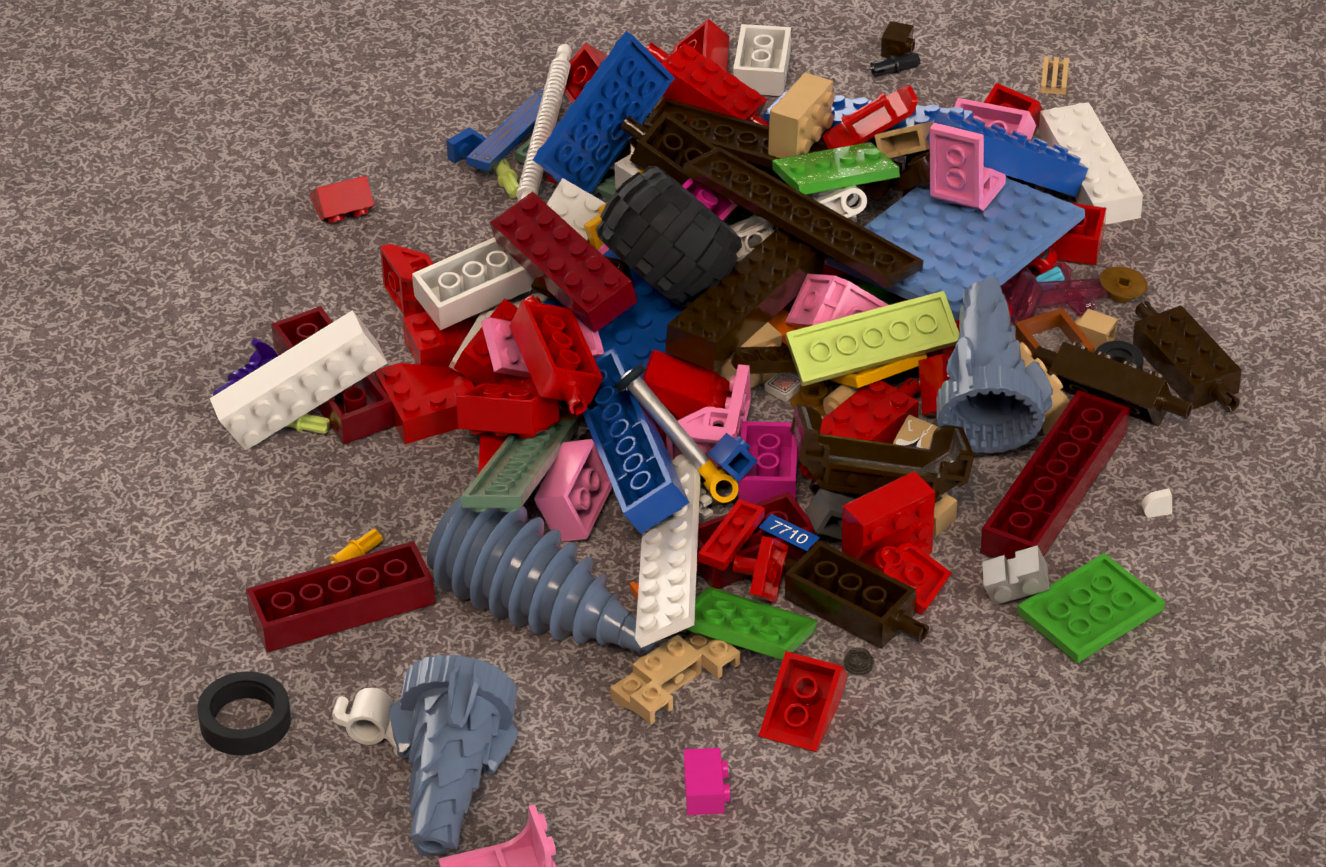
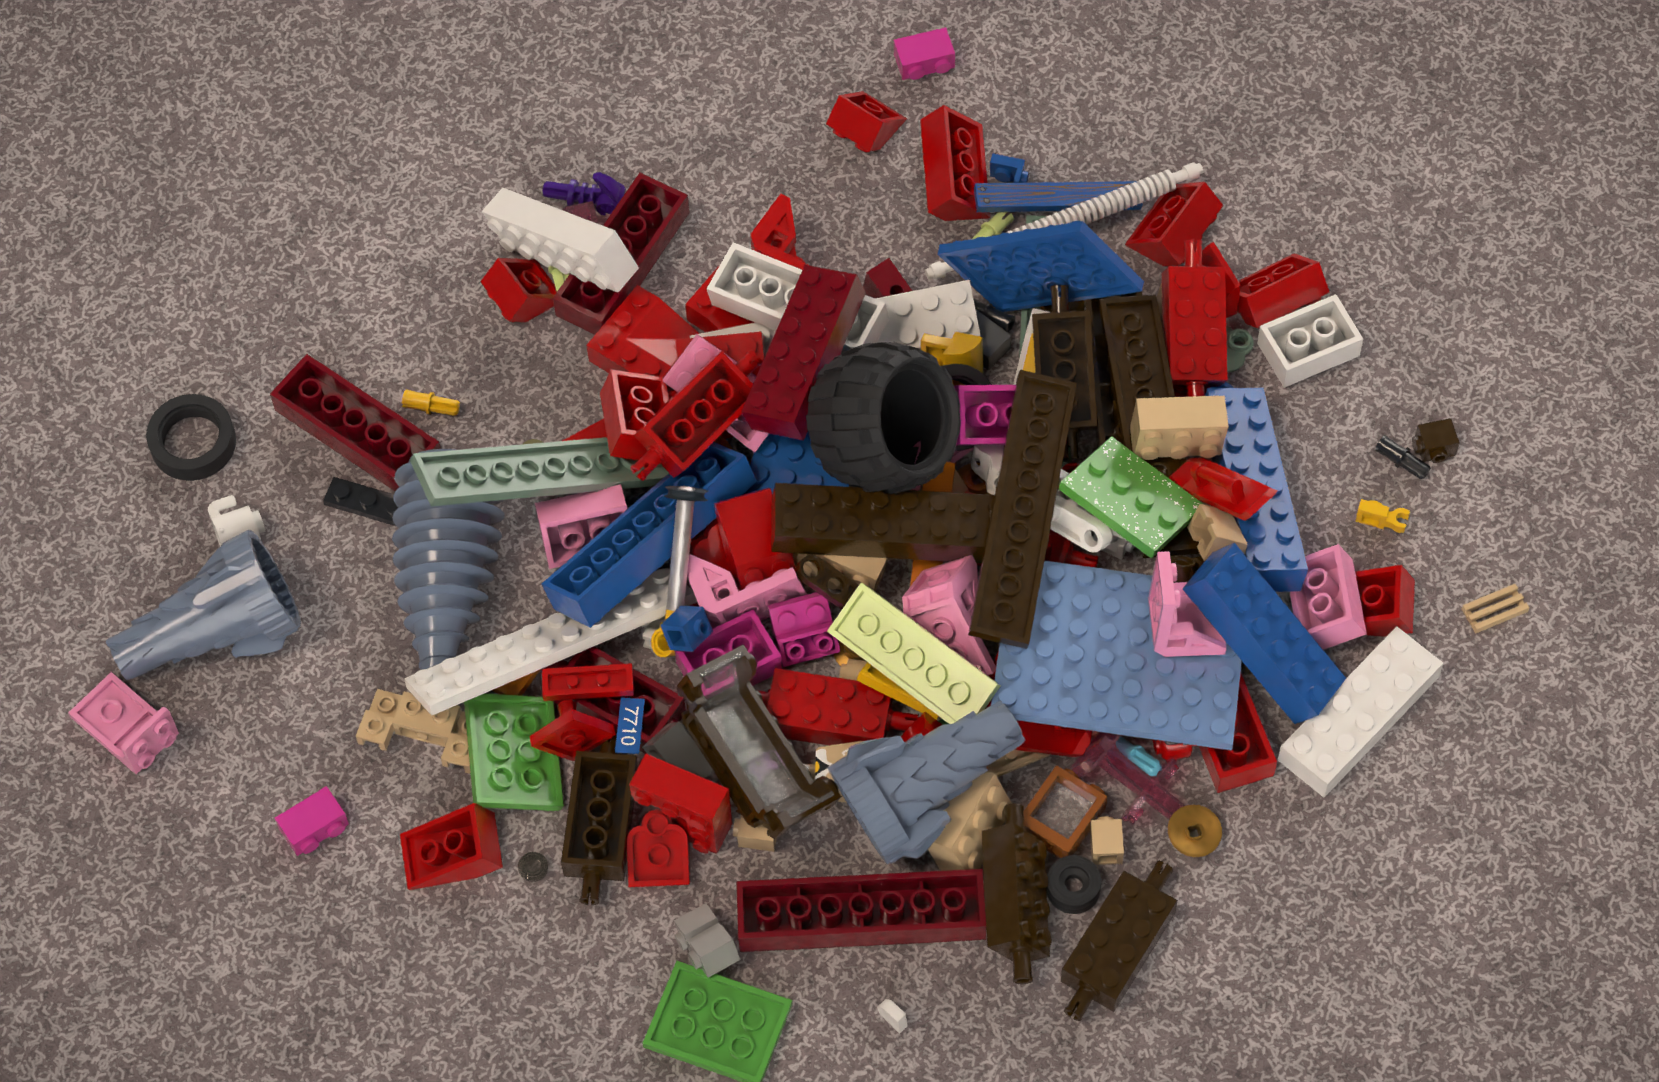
camera: 60 degrees right, 20 degrees up
(301, 450) = (519, 288): none -> red slope
(314, 145) = (924, 54): none -> dark pink brick
(416, 628) = (361, 500): none -> black plate
(430, 171) = (952, 164): none -> red slope
(771, 402) = (802, 628): none -> dark pink brick
(935, 90) = (1379, 516): none -> yellow plate

